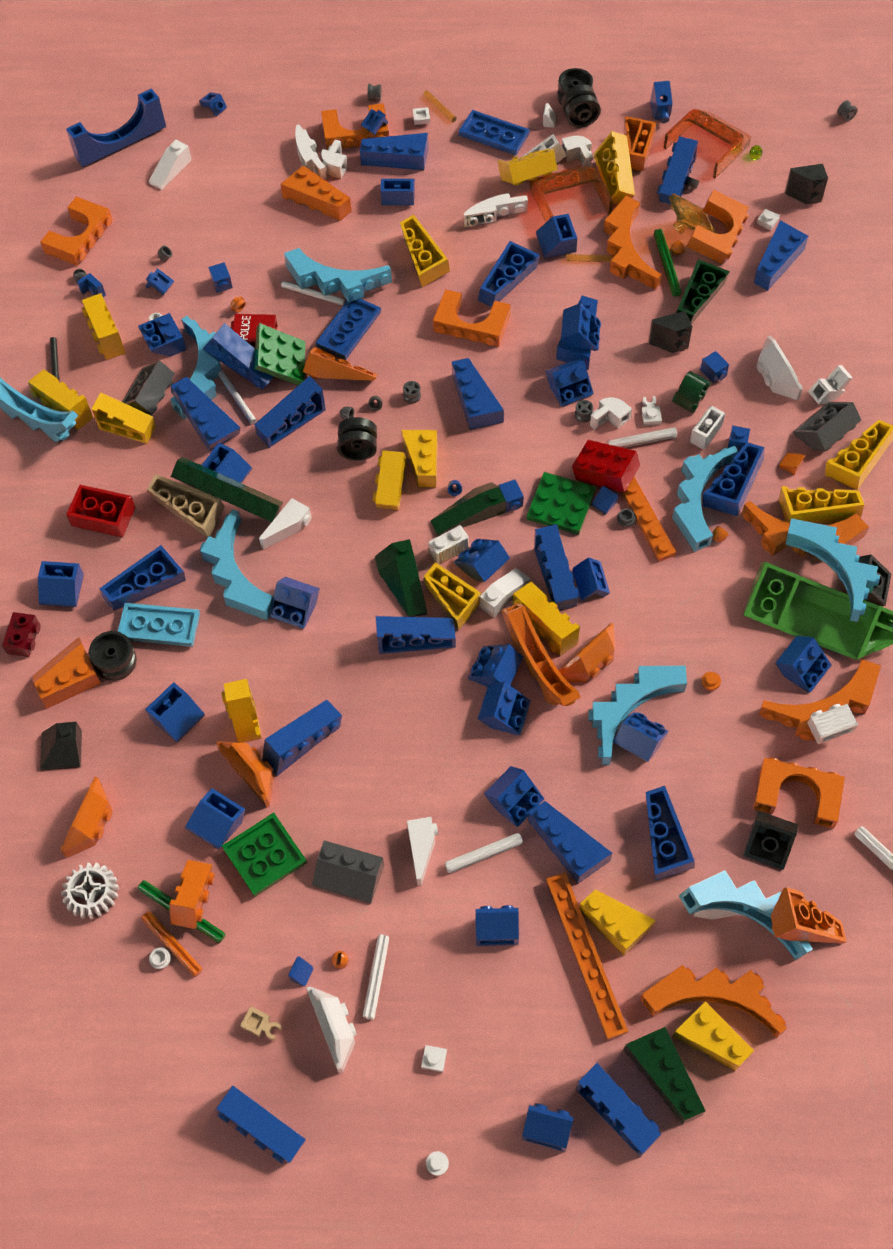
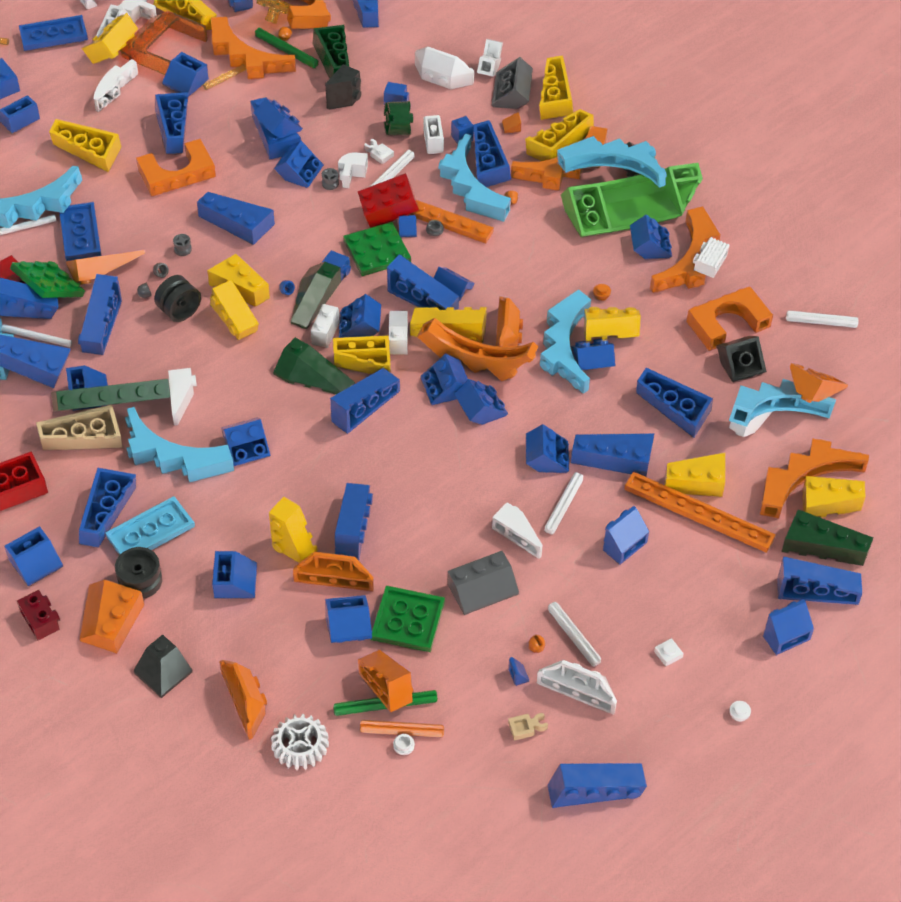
camera: 45 degrees left, 10 degrees down
(681, 717) = (611, 322): none -> yellow wedge

